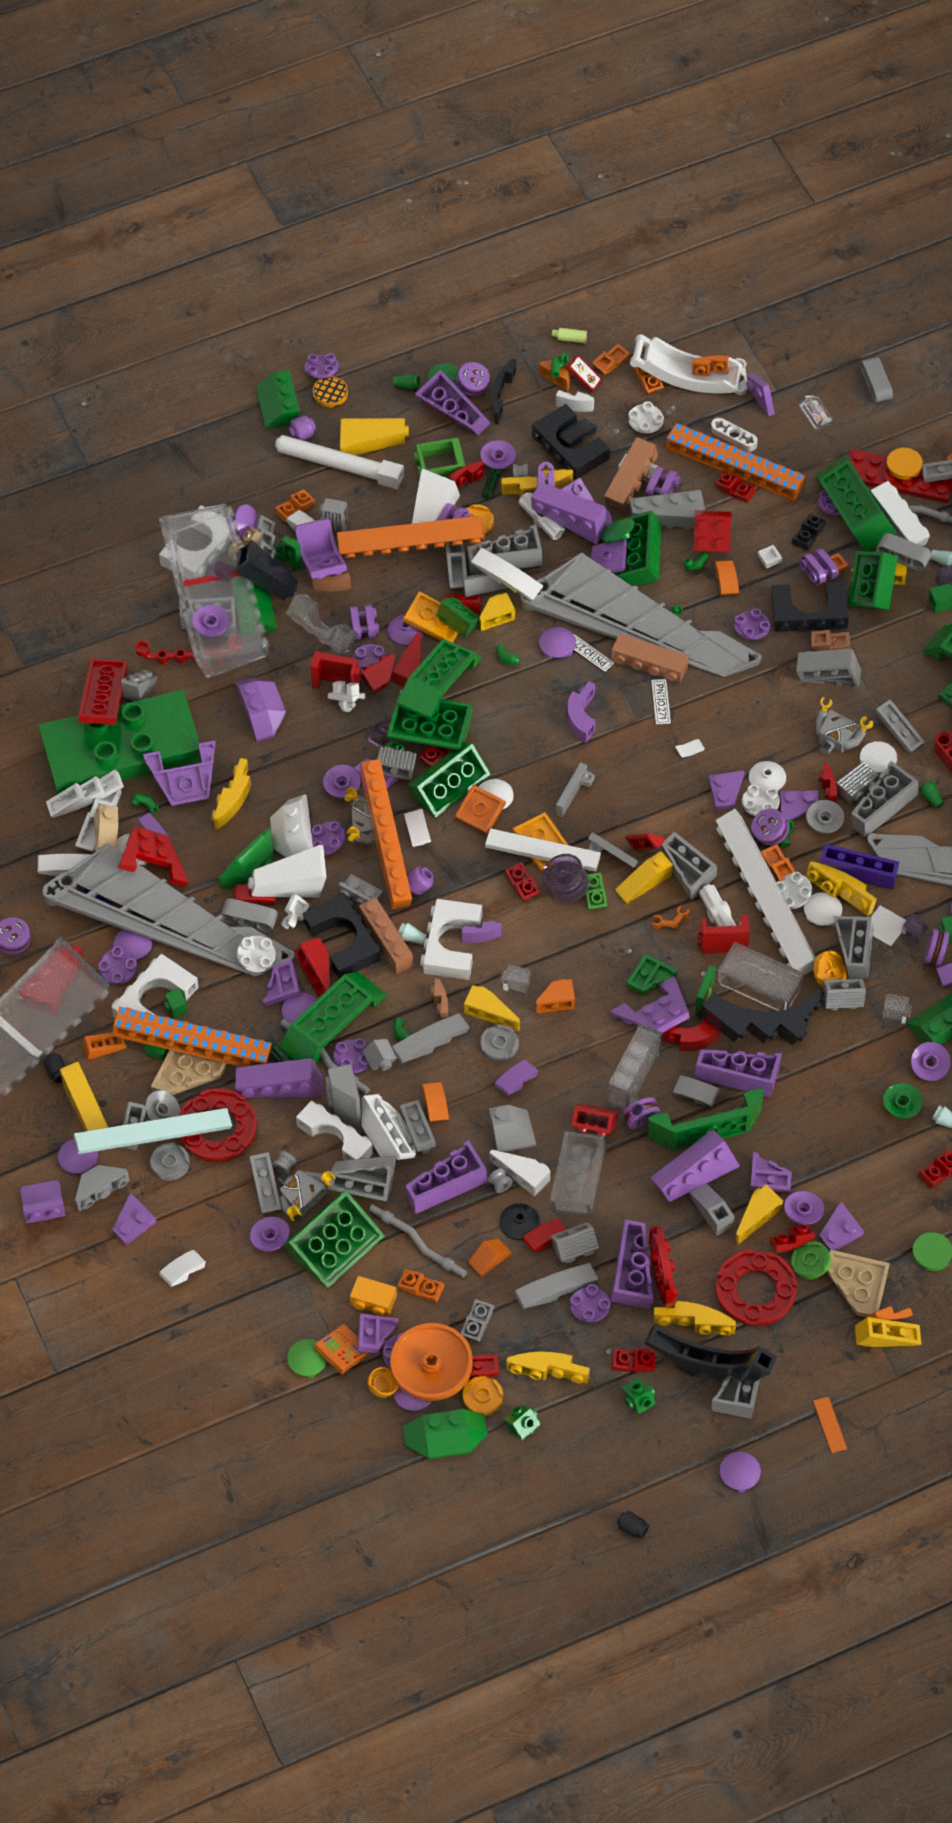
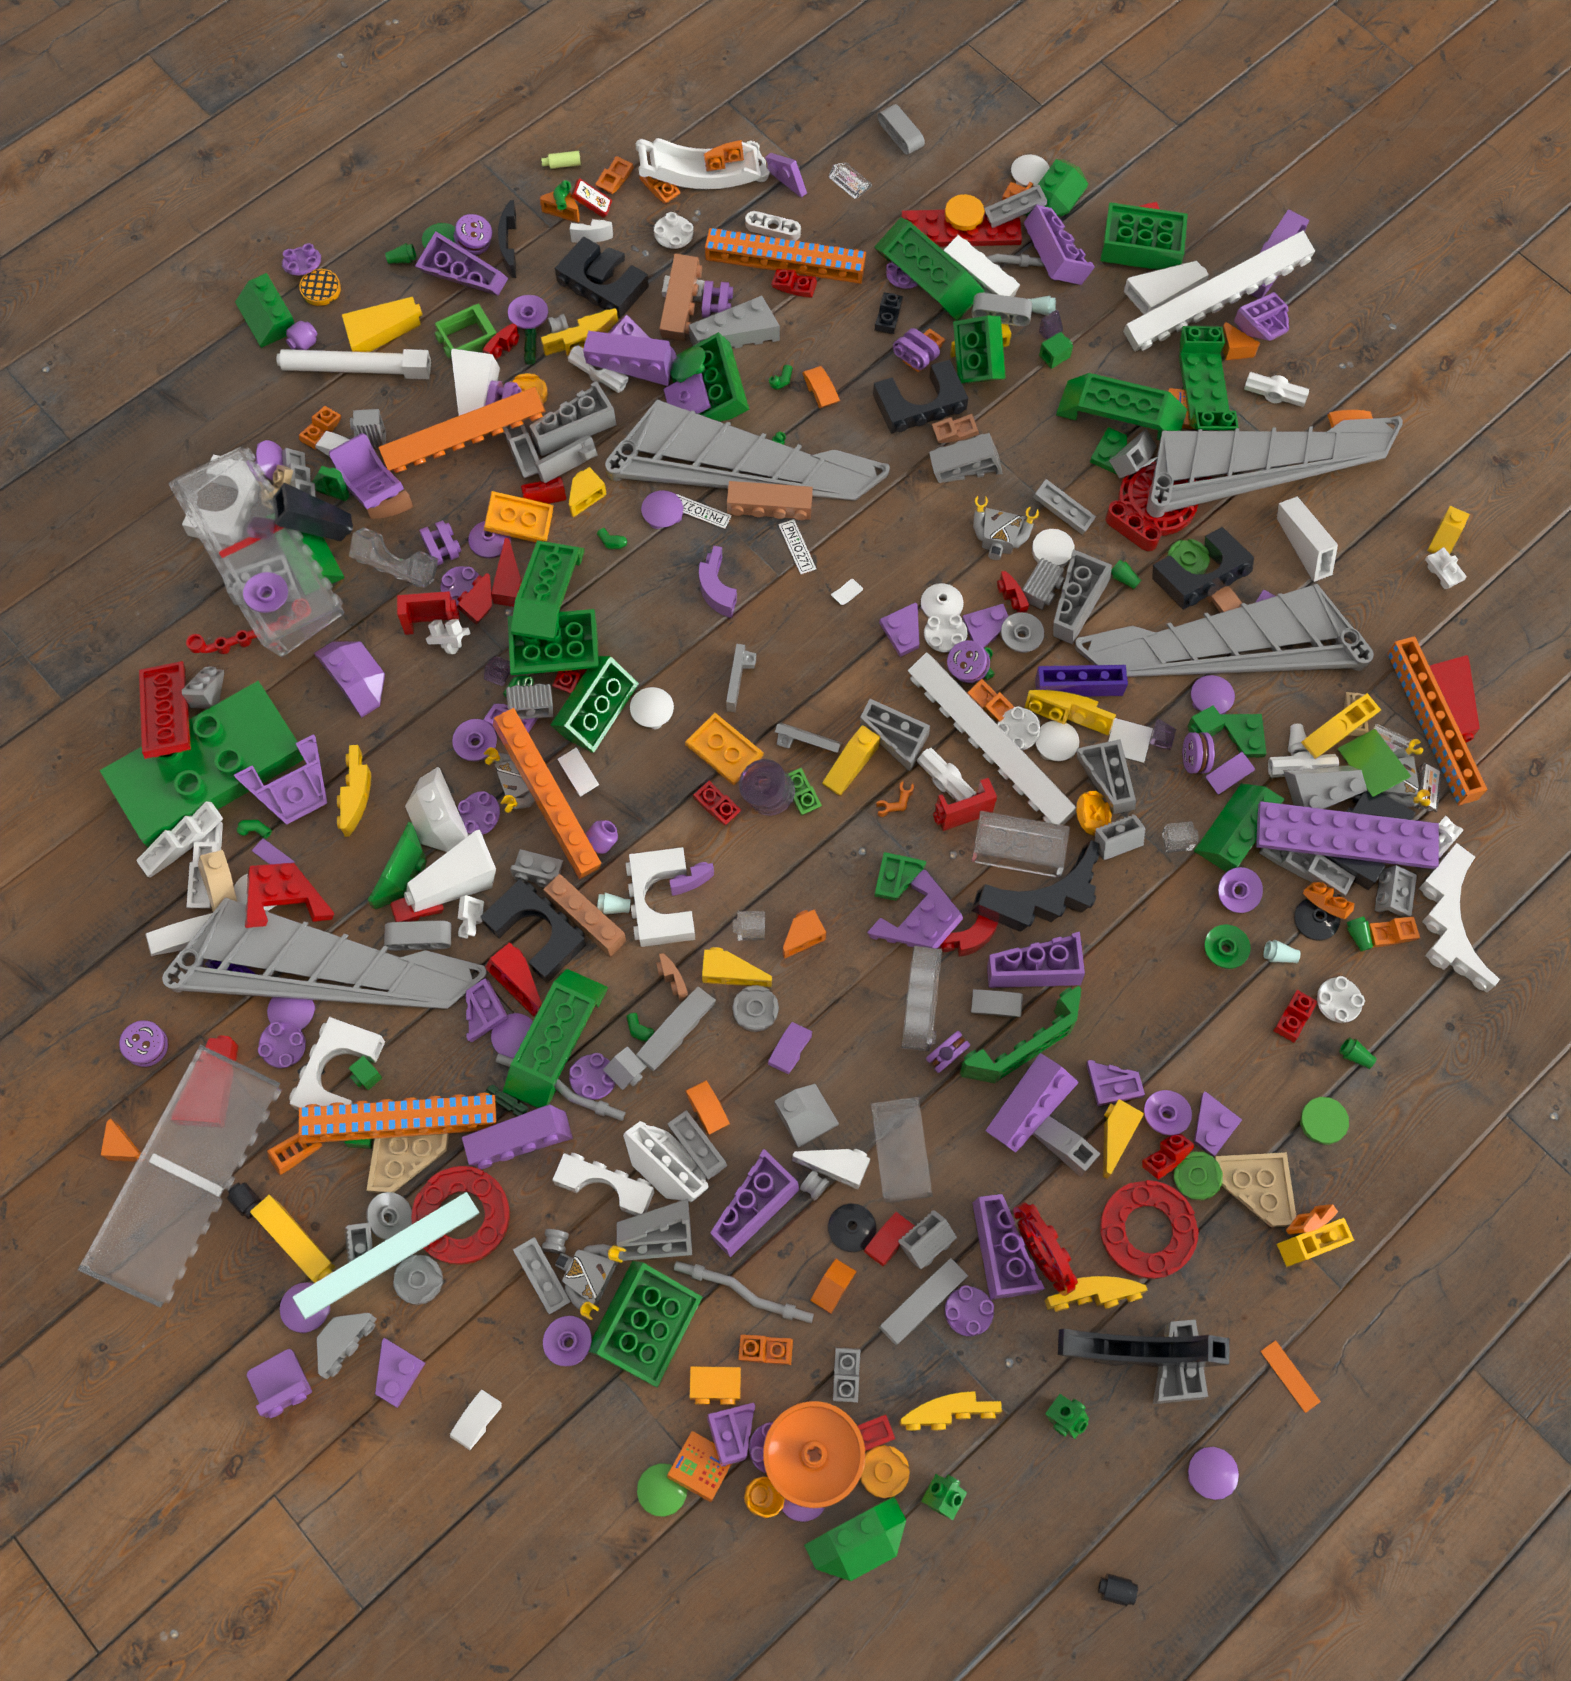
camera: 20 degrees left, 10 degrees up
(256, 953) = (441, 982): white dish -> none
(343, 1094) = (601, 1137): light grey slope -> none
(458, 616) = (544, 508): green slope -> none
(480, 809) = (641, 729): orange tile -> none
(507, 574) = (584, 446): white slope -> none
(539, 848) = (724, 758): white tile -> none
(550, 475) = (584, 324): medium lavender beam -> none
(595, 1118) = (899, 1076): red brick -> none
(633, 1361) = (1041, 1368): red slope -> none
(644, 841) = (840, 718): red slope -> none
(705, 989) = (968, 880): green tile -> none
(712, 531) = (790, 338): red brick -> none
(752, 624) = (866, 432): medium lavender dish -> none
(769, 556) = (858, 351): white plate -> none

